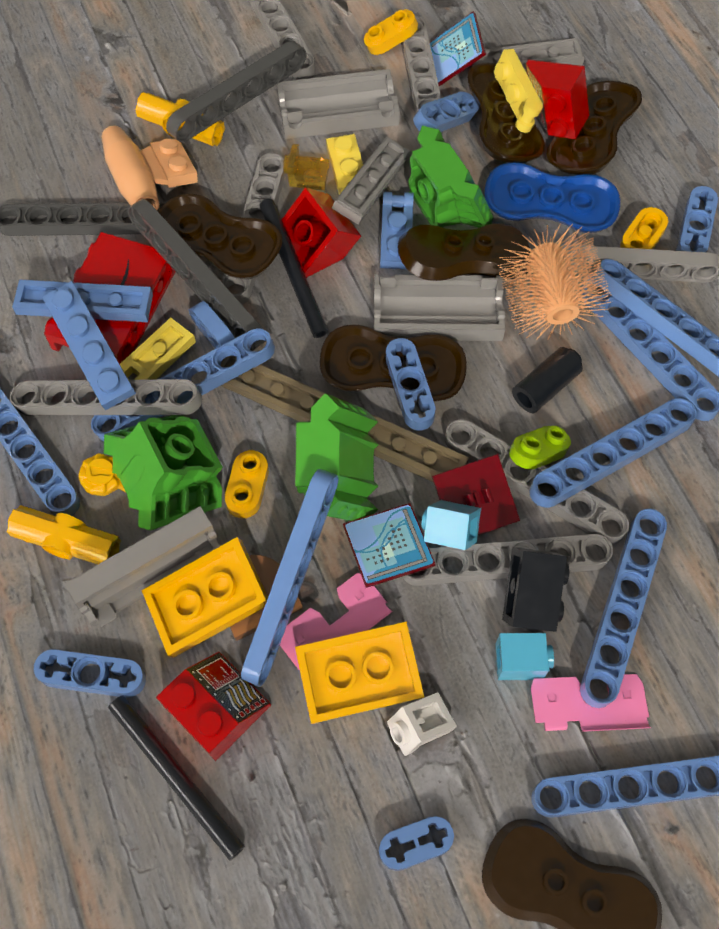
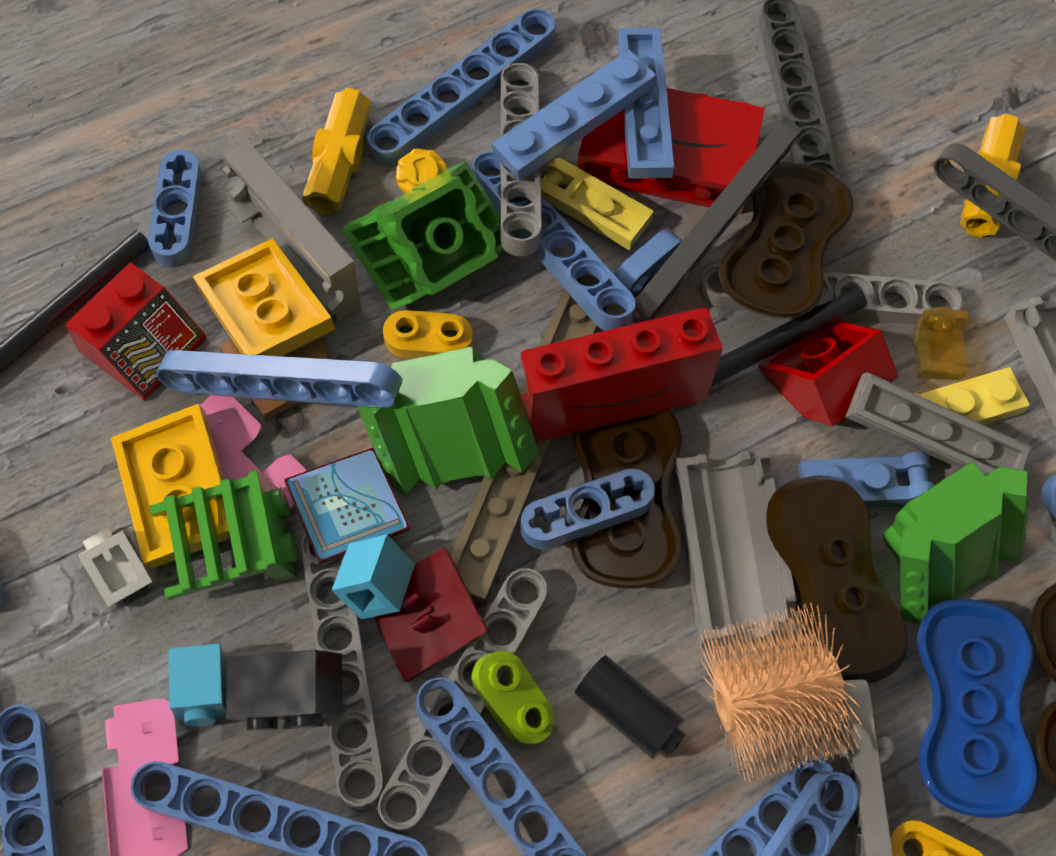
camera: 80 degrees right, 0 degrees up
(139, 171) = (890, 141): light nougat plate -> none
(323, 331) = (620, 373): none -> red panel
(407, 604) = (256, 531): none -> bright green plate

